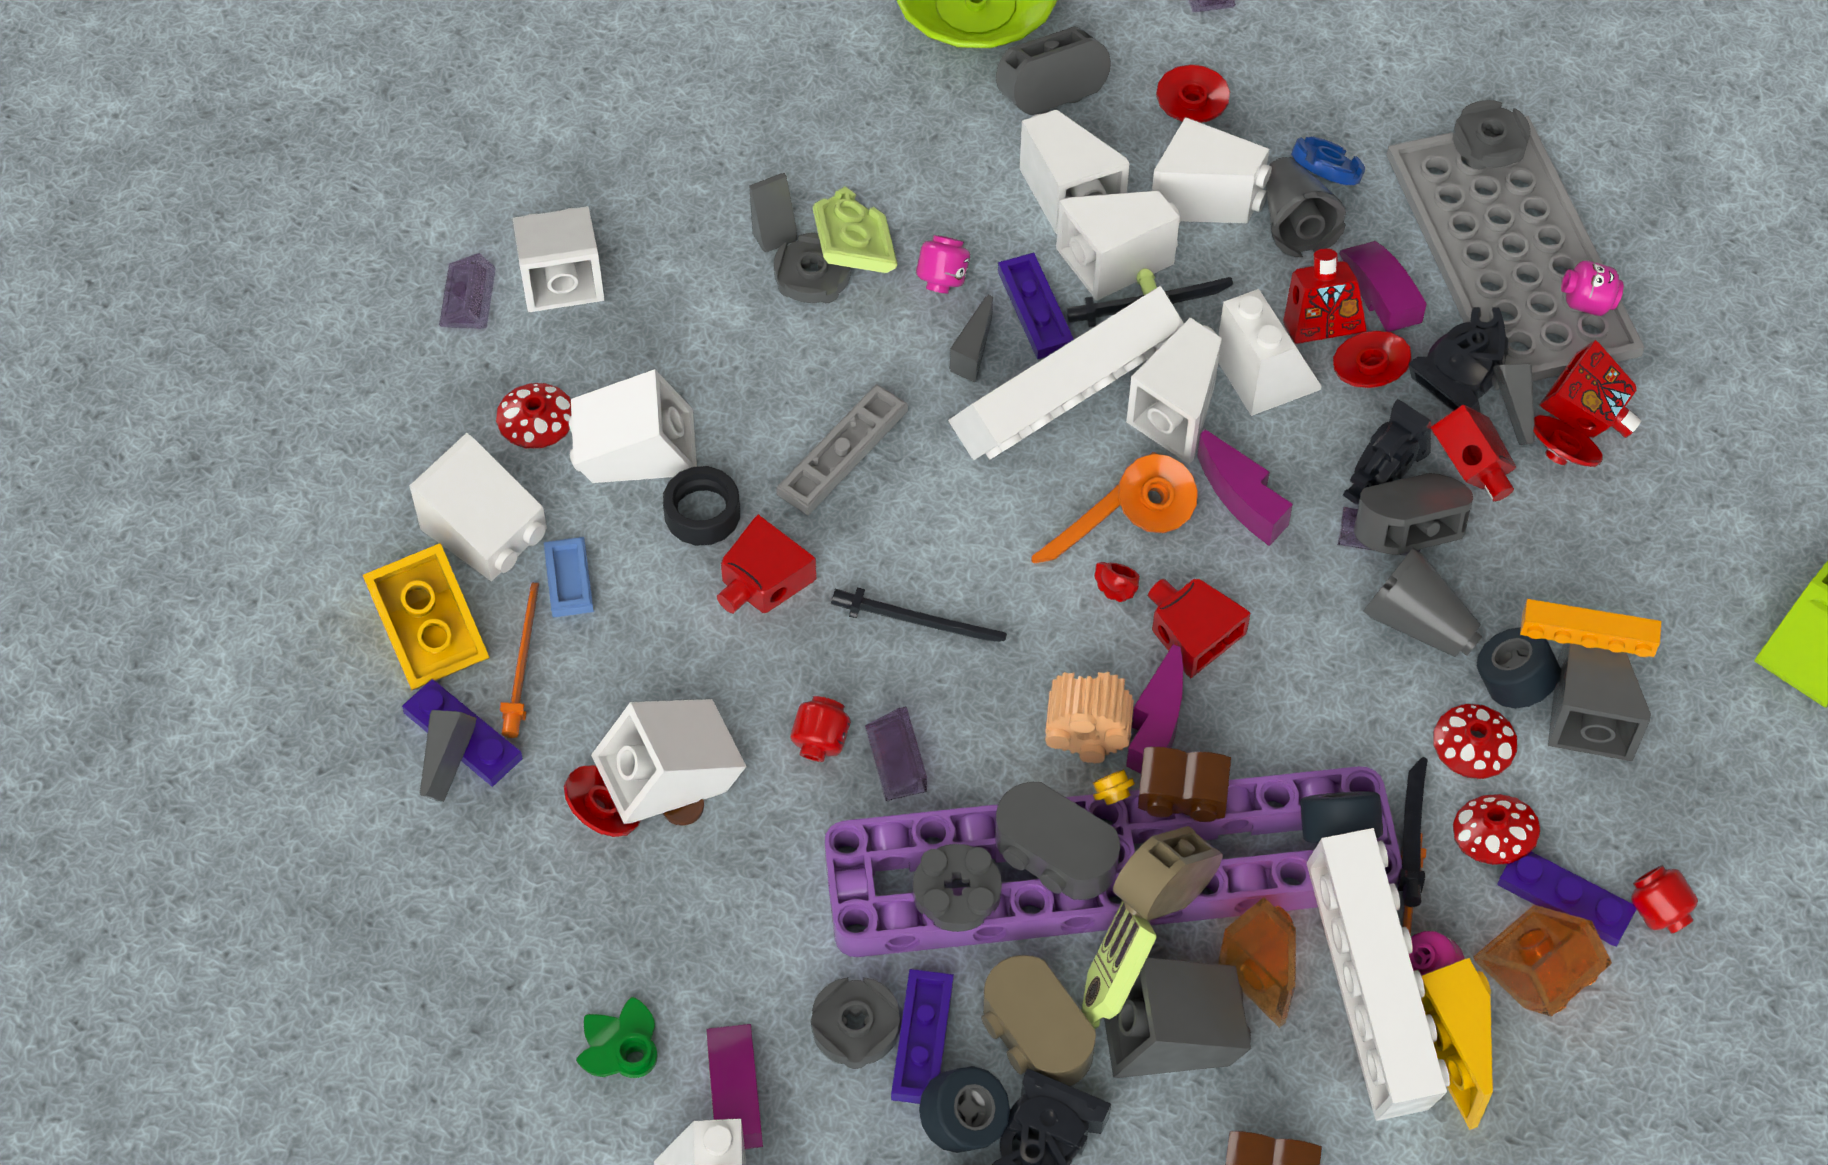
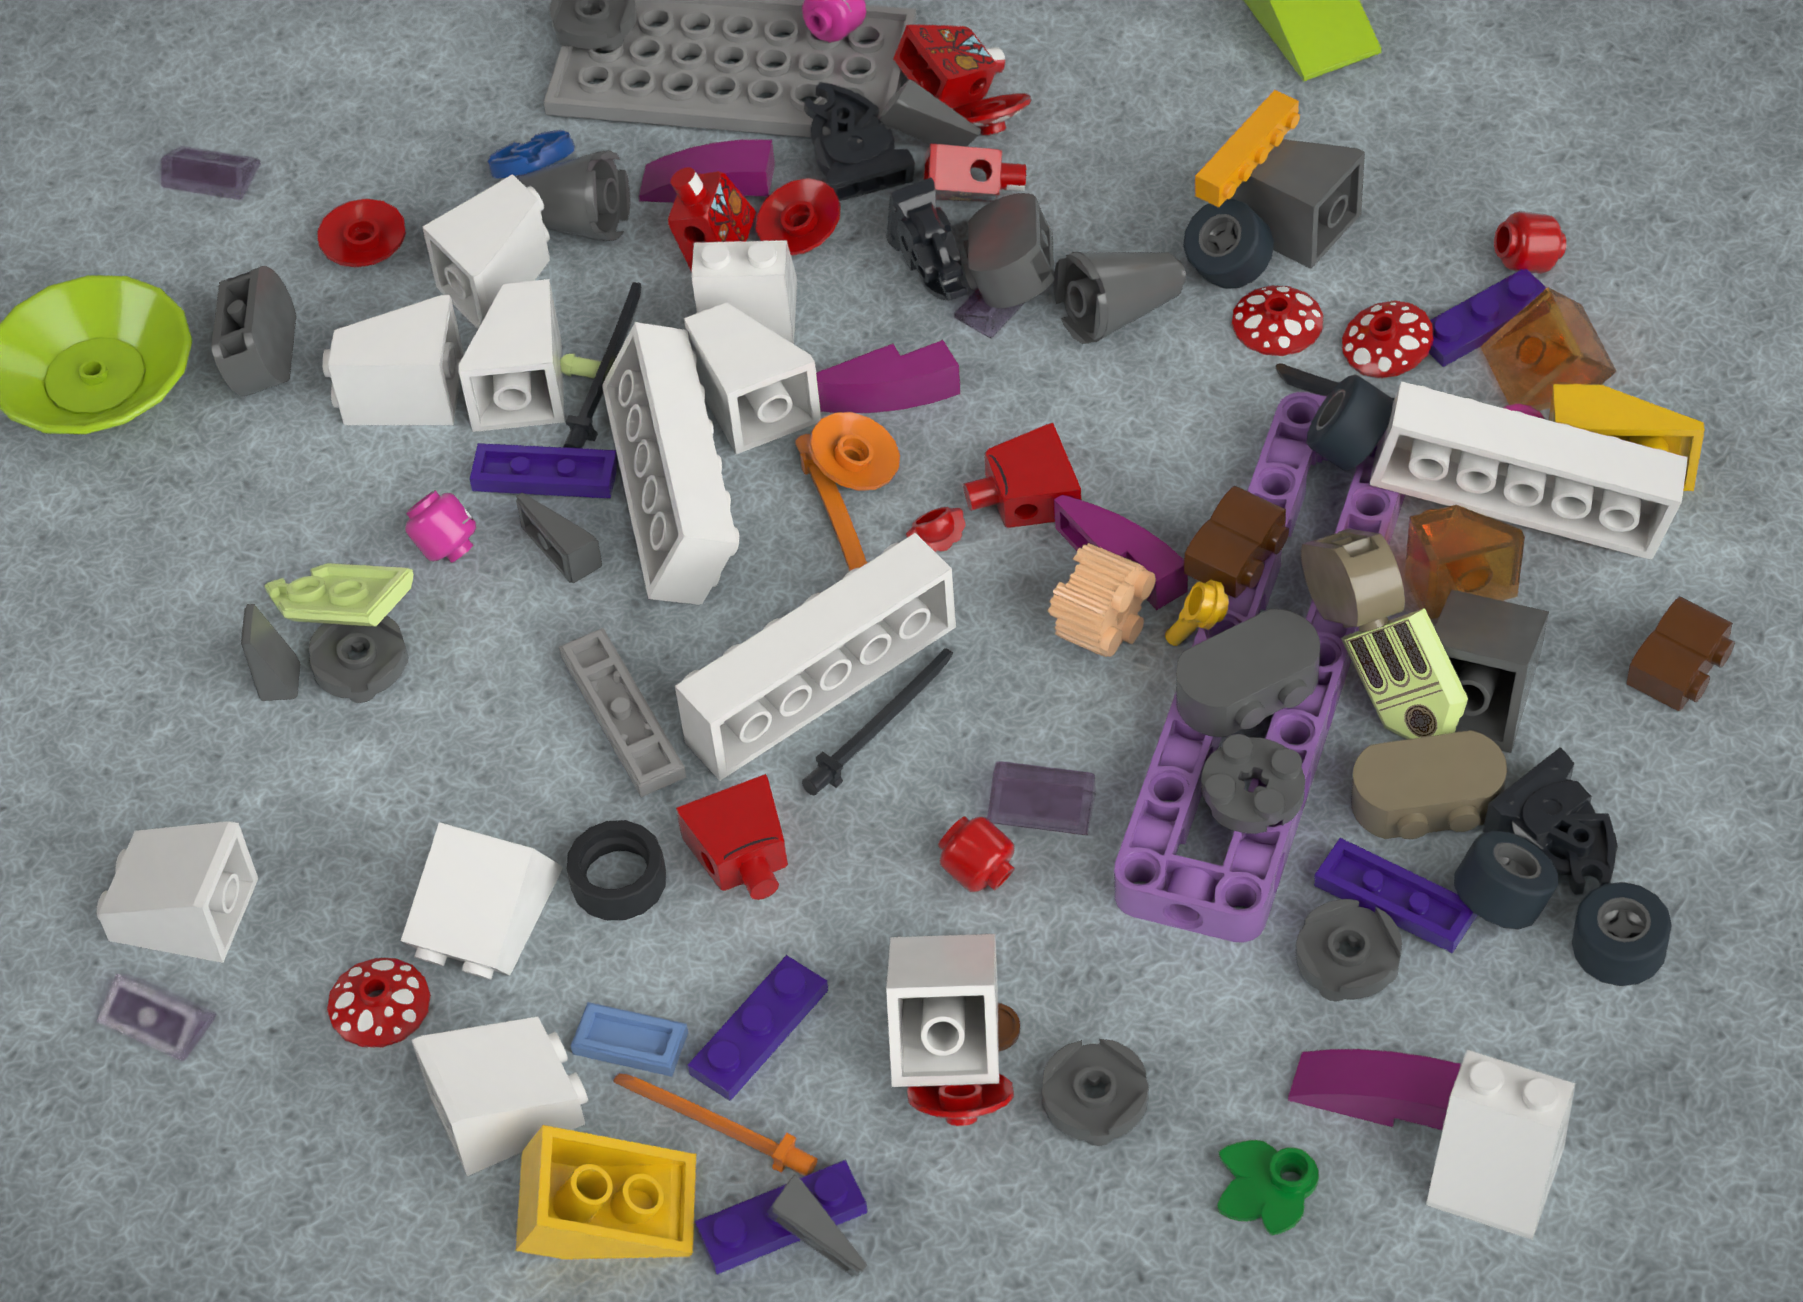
camera: 60 degrees left, 5 degrees down
(612, 652) = (758, 1028): none -> dark purple plate
(652, 915) = (1095, 1118): none -> dark grey plate
(939, 546) = (816, 656): none -> white brick

